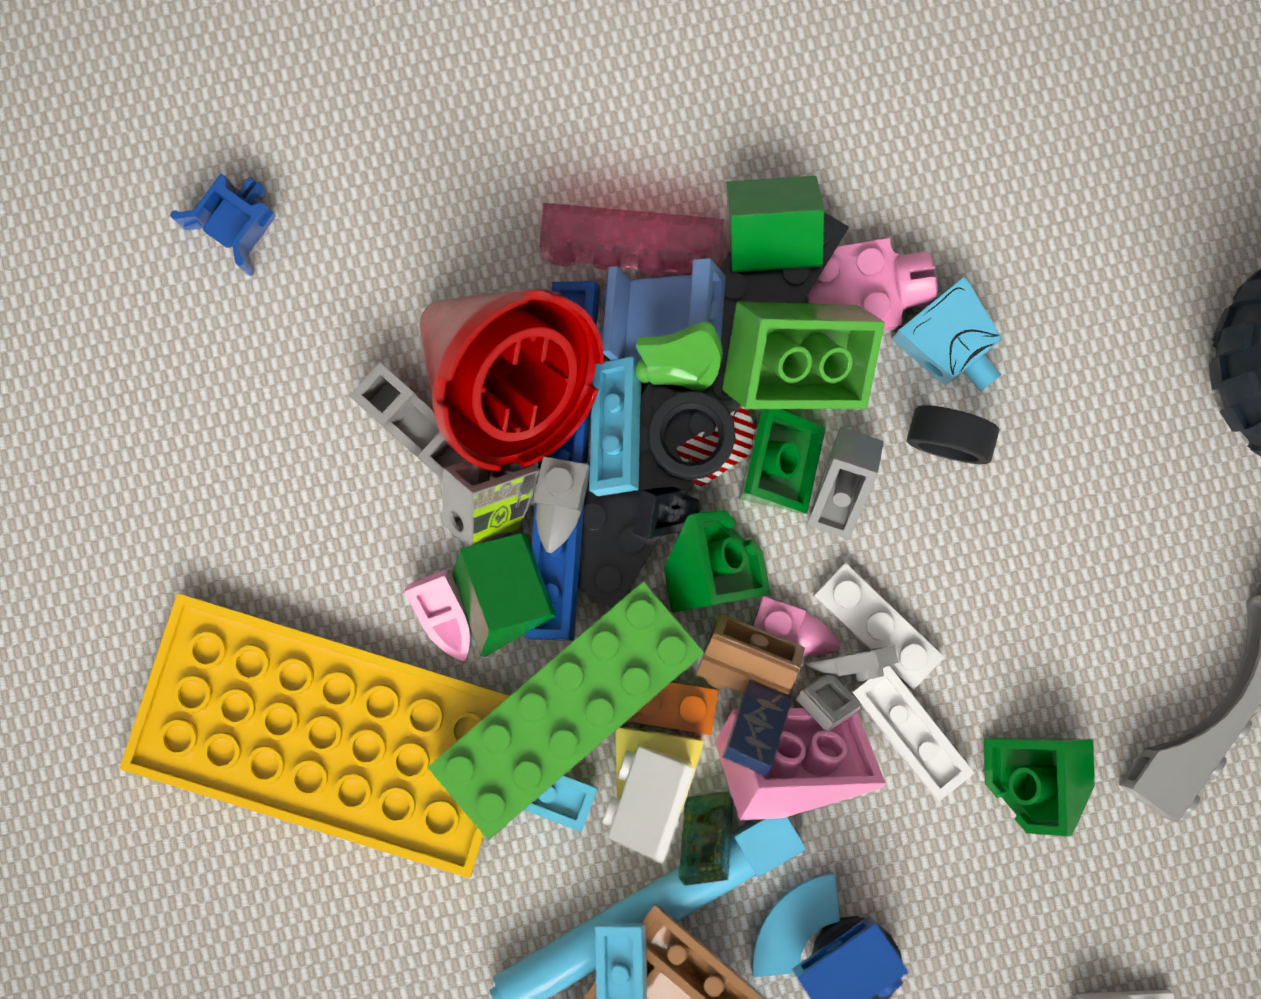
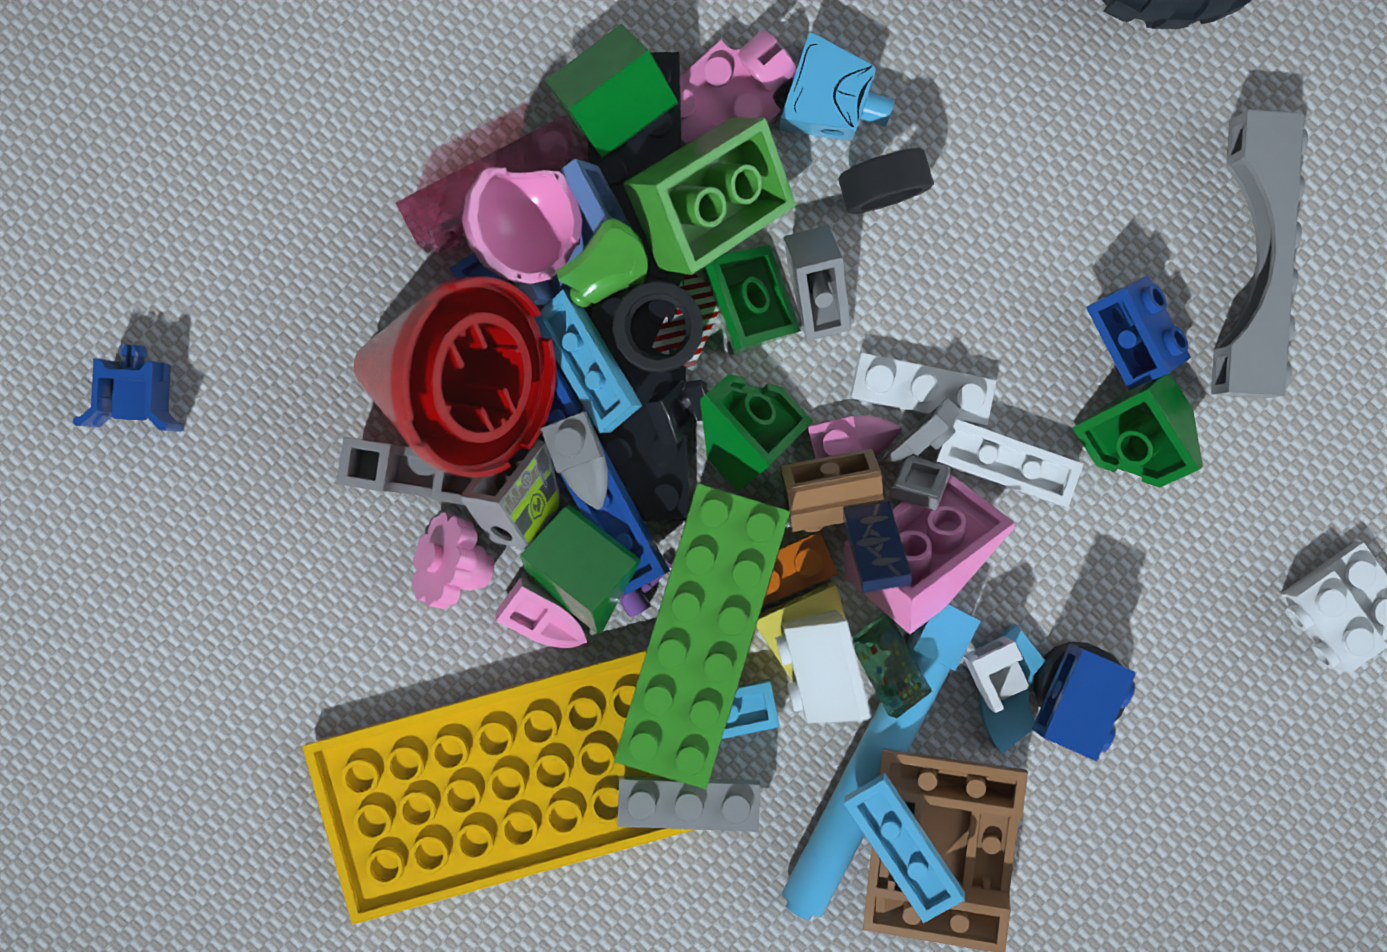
camera: 25 degrees left, 5 degrees up
(398, 518) = (449, 562): none -> bright pink plant
(464, 847) = (677, 805): none -> light grey plate
(529, 650) = (637, 602): none -> medium lavender hand
(635, 282) = (522, 223): none -> bright pink cylinder
(793, 902) = (997, 671): none -> white panel
(1088, 691) = (1139, 332): none -> blue brick

